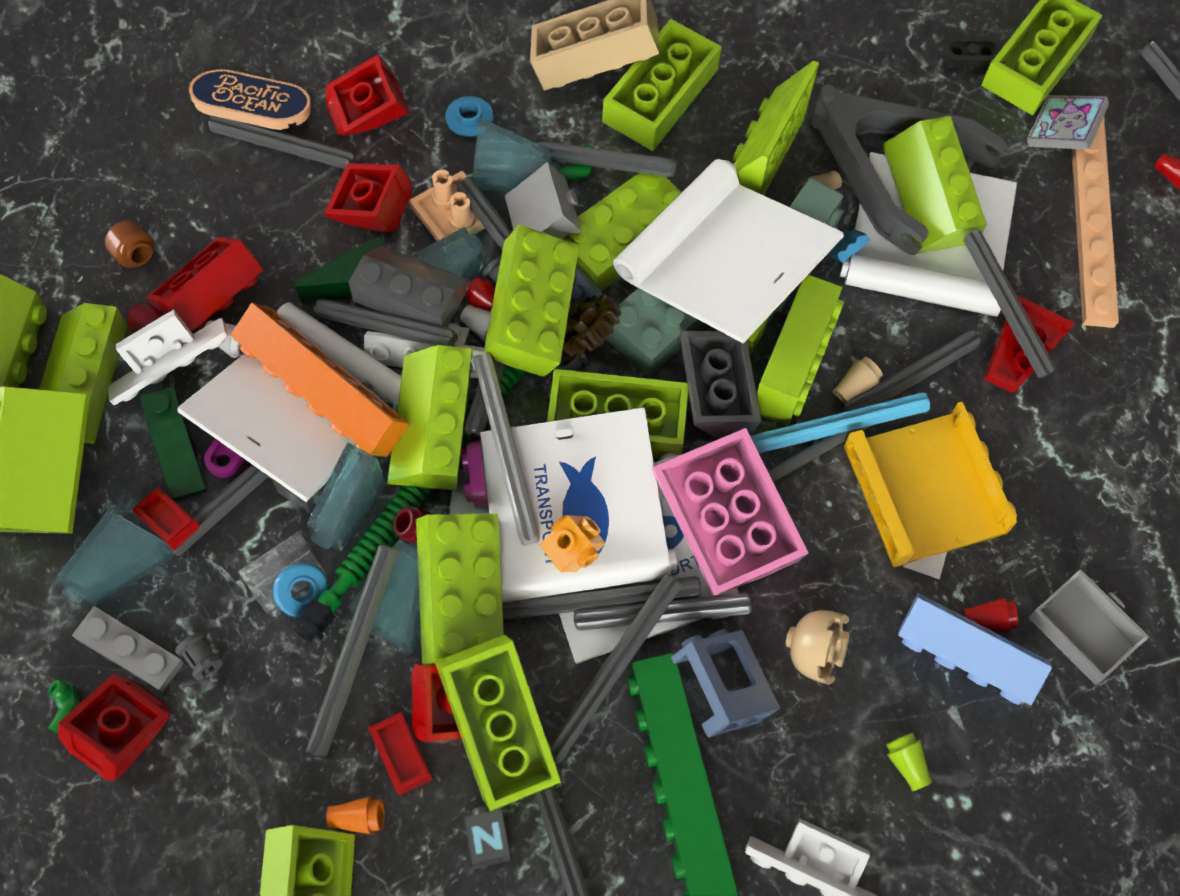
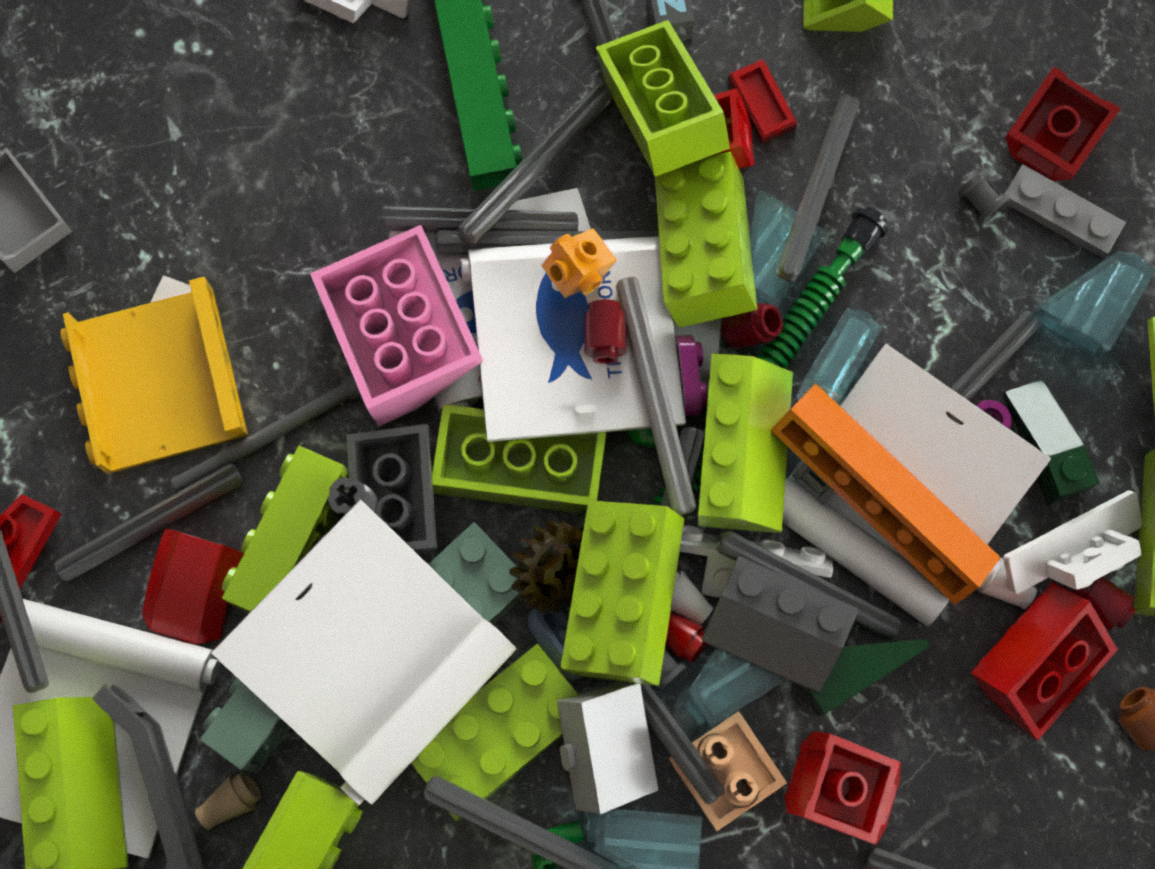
camera: 175 degrees left, 10 degrees up
(66, 699) = (1118, 160): green arm -> none
(166, 518) = (1044, 348): red tile -> none
(262, 572) = (903, 287): clear panel -> none
(290, 576) = (882, 264): dark azure piece -> none
(357, 816) = (800, 37): orange cone -> none
(548, 490) = (604, 331): none -> dark red brick
(730, 708) = (412, 105): sand blue window -> none
(749, 362) = (340, 499): none -> dark grey bush
(818, 644) = (312, 189): tan cylinder -> none
(841, 422) = (250, 449): medium azure axle -> none
(848, 245) = (200, 698): dark azure piece -> none
(859, 378) = (218, 512): tan cone -> none
(869, 327) = (187, 588): none -> red slope
(910, 760) = (232, 81): lime cone -> none
(974, 649) = (141, 181): light blue brick -> none
(994, 615) = (113, 223): red cone -> none

